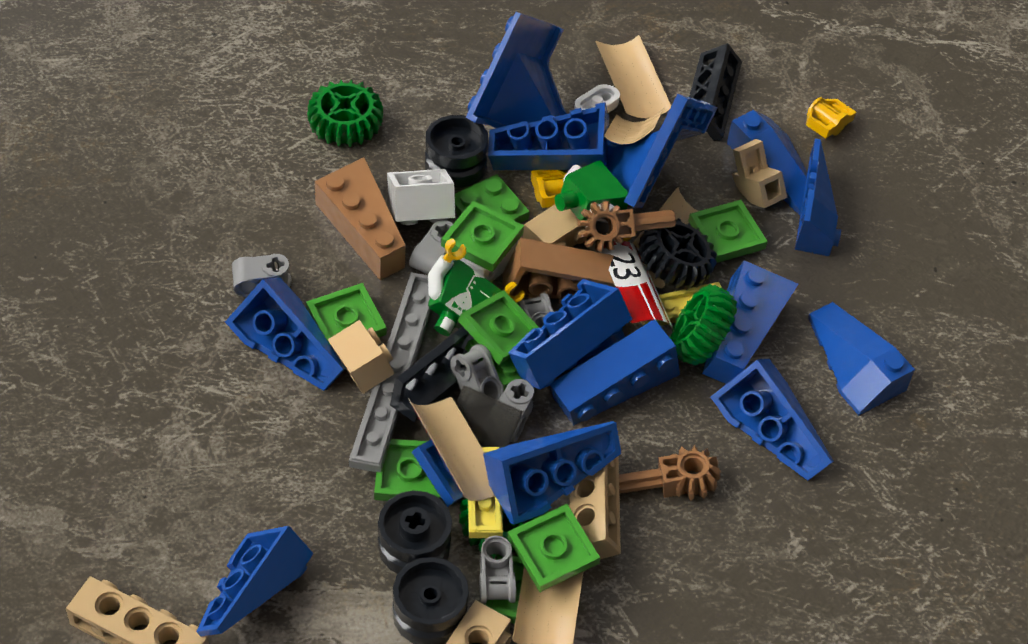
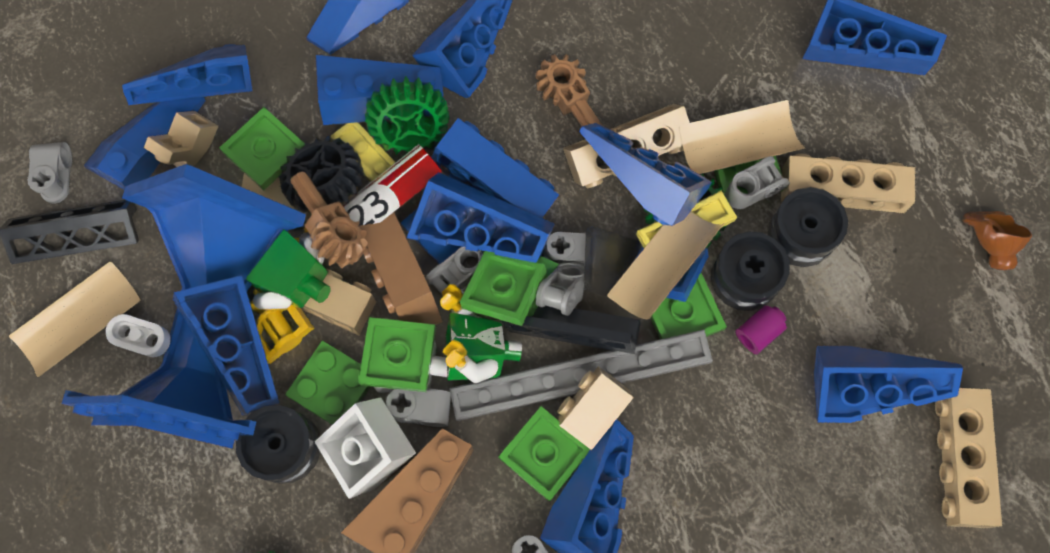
camera: 110 degrees left, 20 degrees up
(356, 522) = (761, 329): none -> magenta brick
(553, 547) = (717, 141): bright green plate -> none
(629, 132) = (175, 265): tan sticker -> none
(773, 94) = (50, 170): none -> light grey piece
(829, 116) = (63, 108): yellow piece -> none

